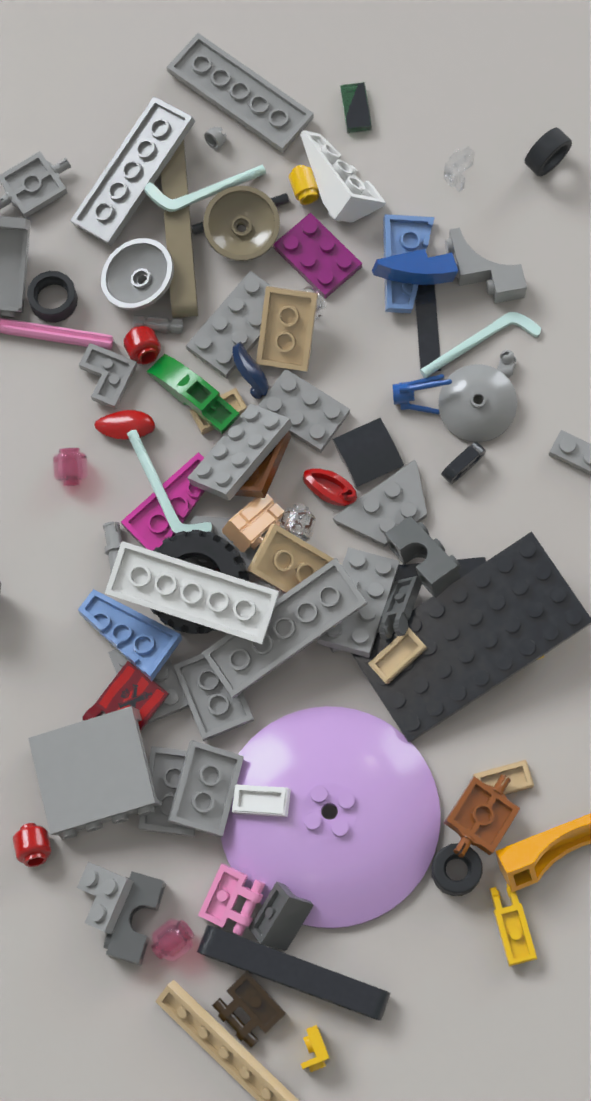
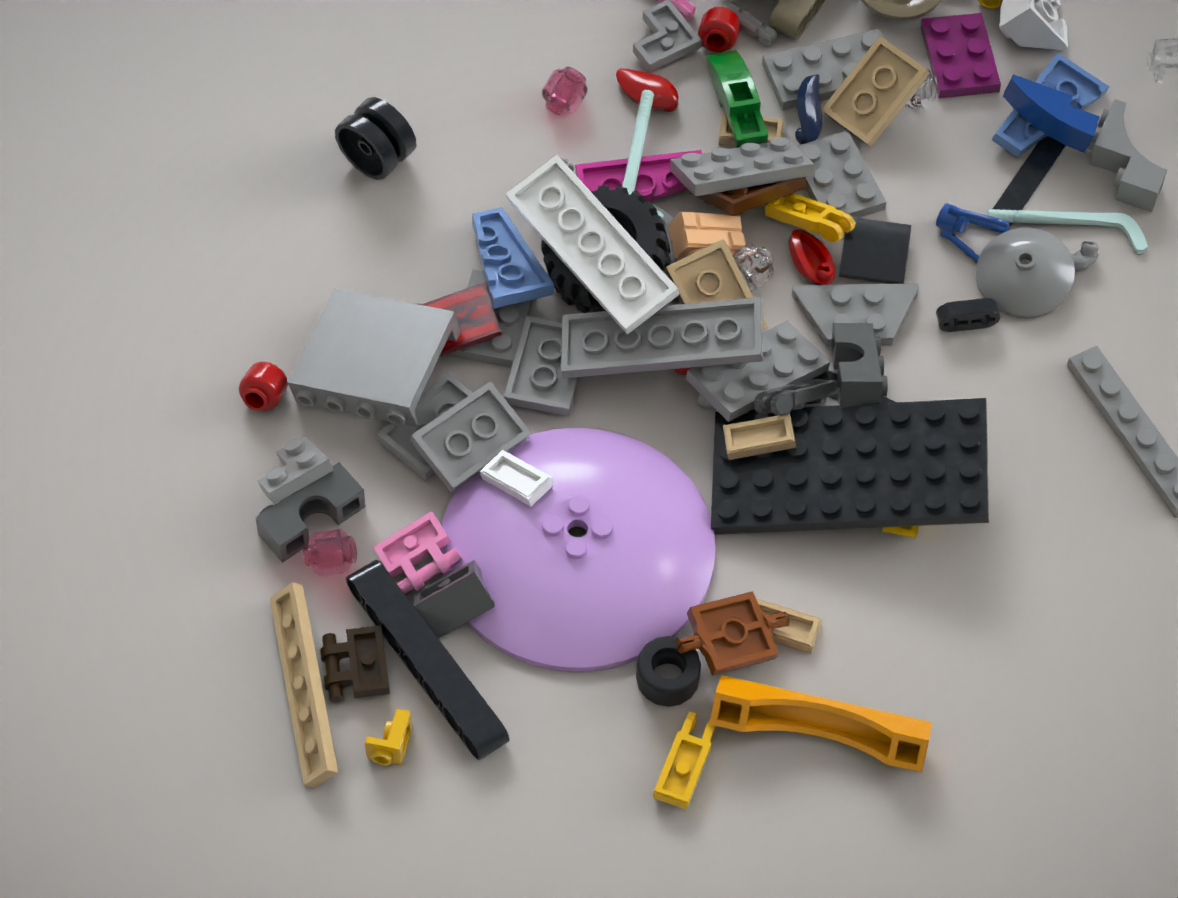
camera: 30 degrees right, 15 degrees down
(312, 456) = (811, 216): none -> yellow hinge

